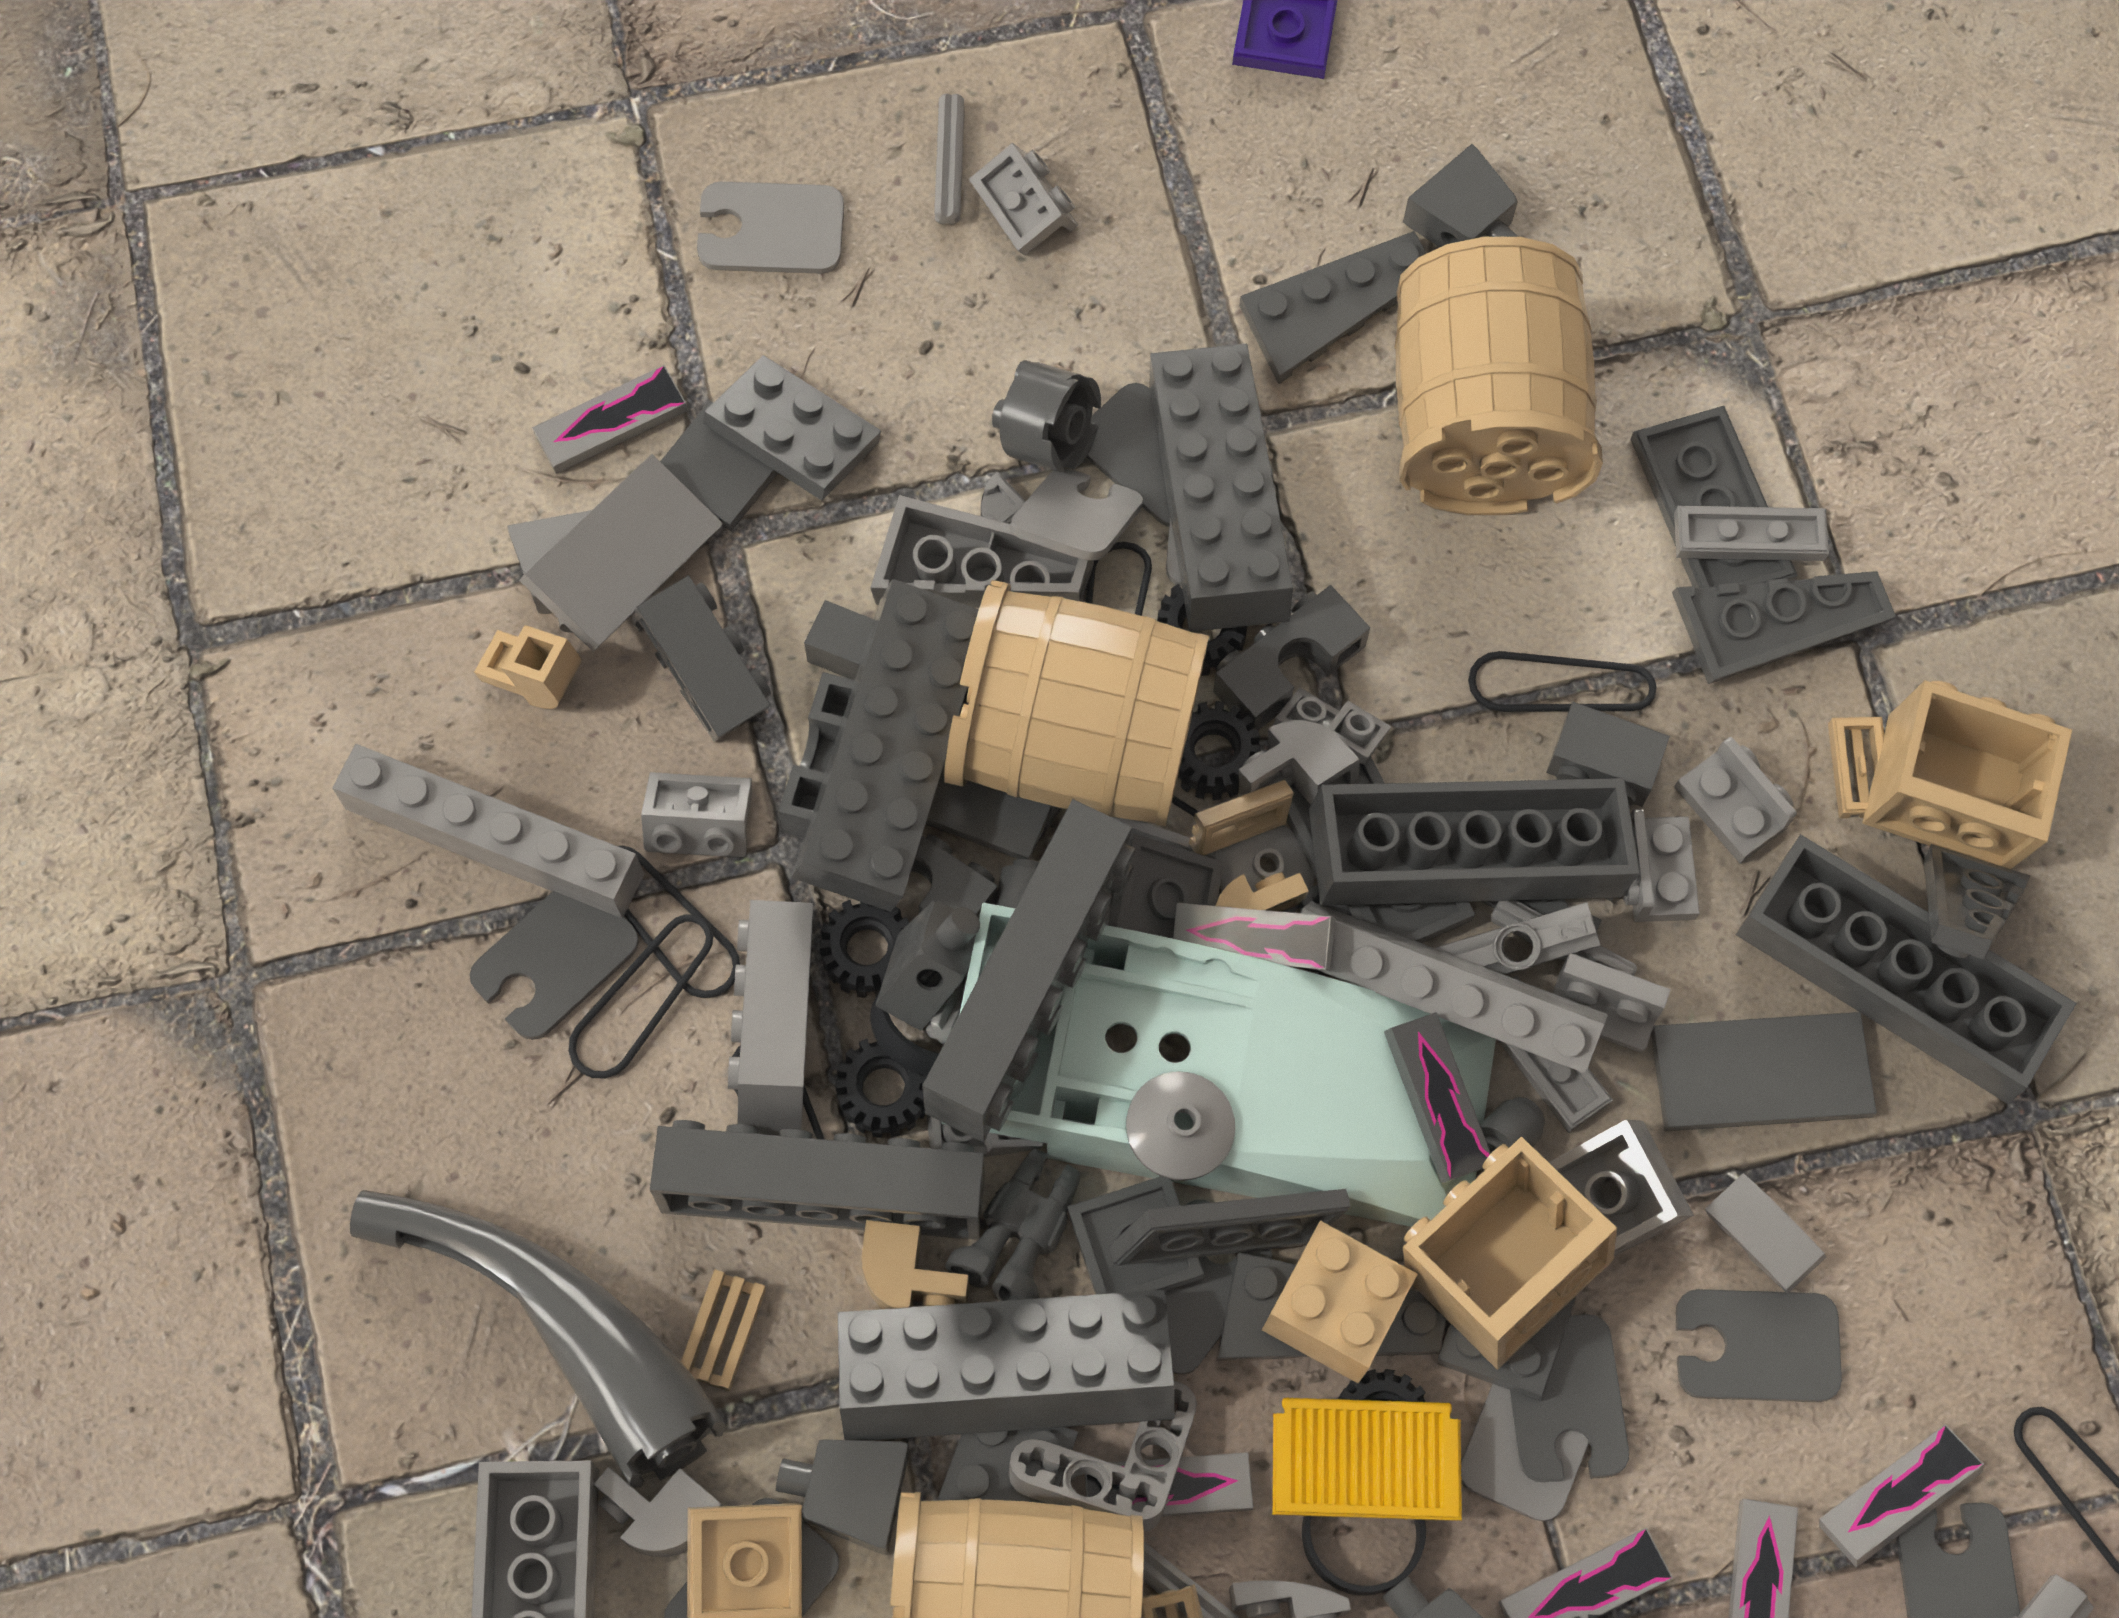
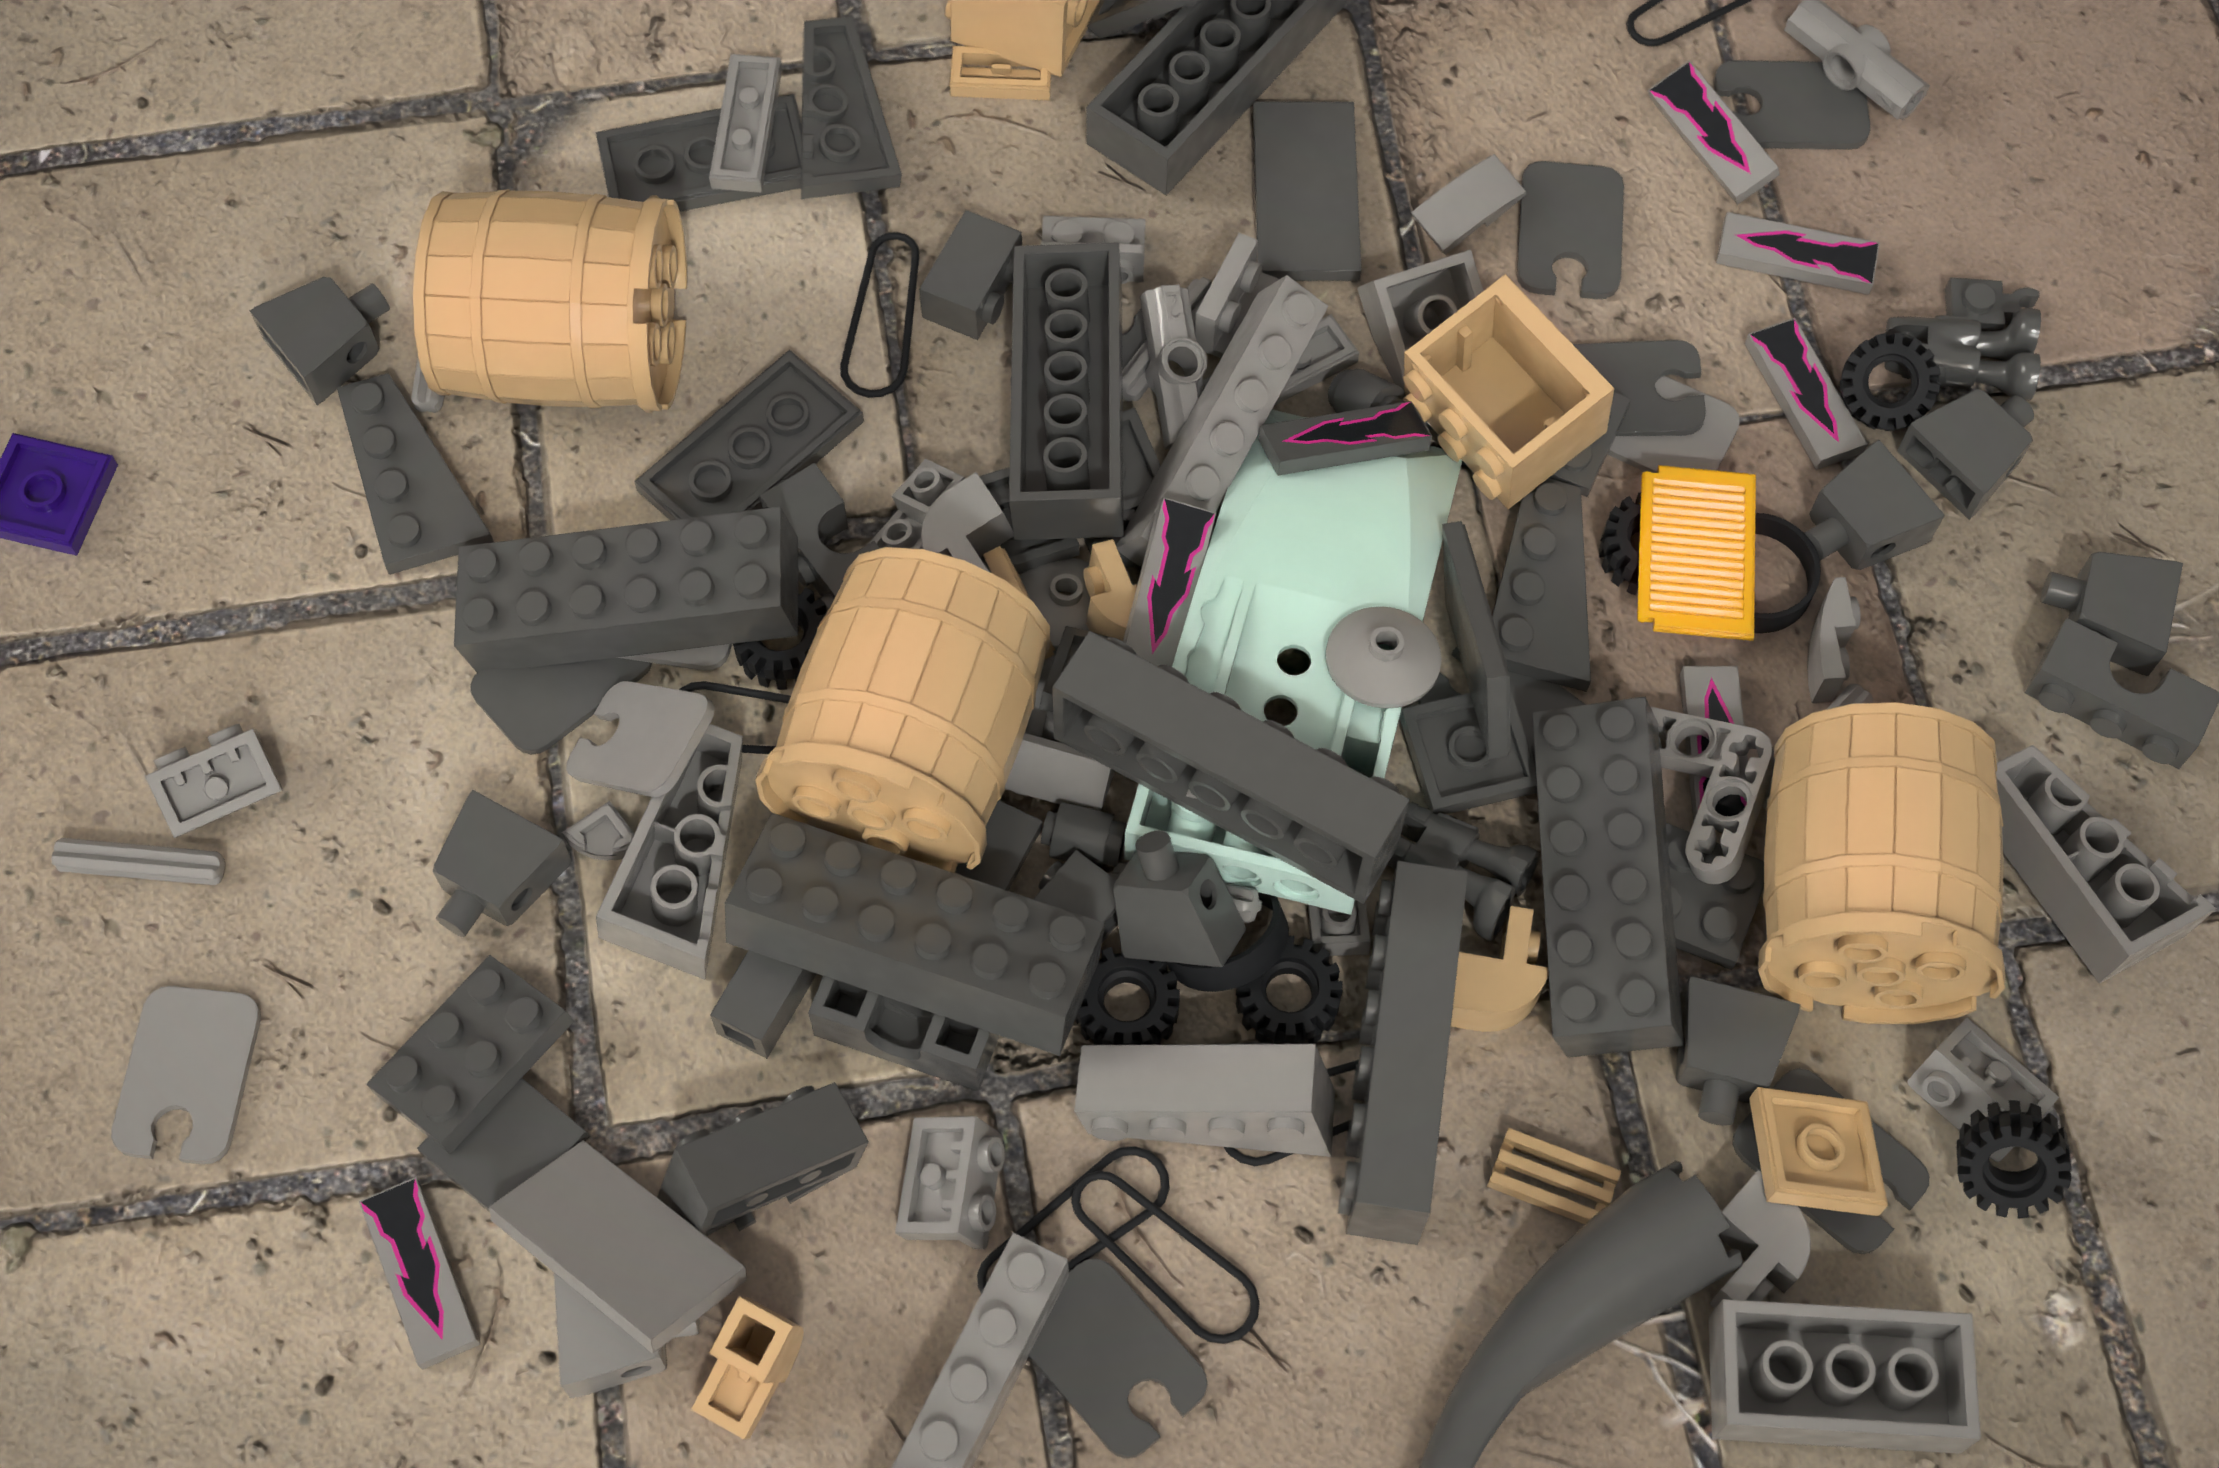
camera: 85 degrees left, 5 degrees down
(955, 422) = (495, 865): none -> dark grey torso
(1048, 416) = (511, 762): dark grey brick -> none
(1339, 1302) = (1549, 550): tan brick -> none
(1395, 581) = (751, 443): none -> dark grey tile
(1737, 799) = (1027, 173): light grey bracket -> none

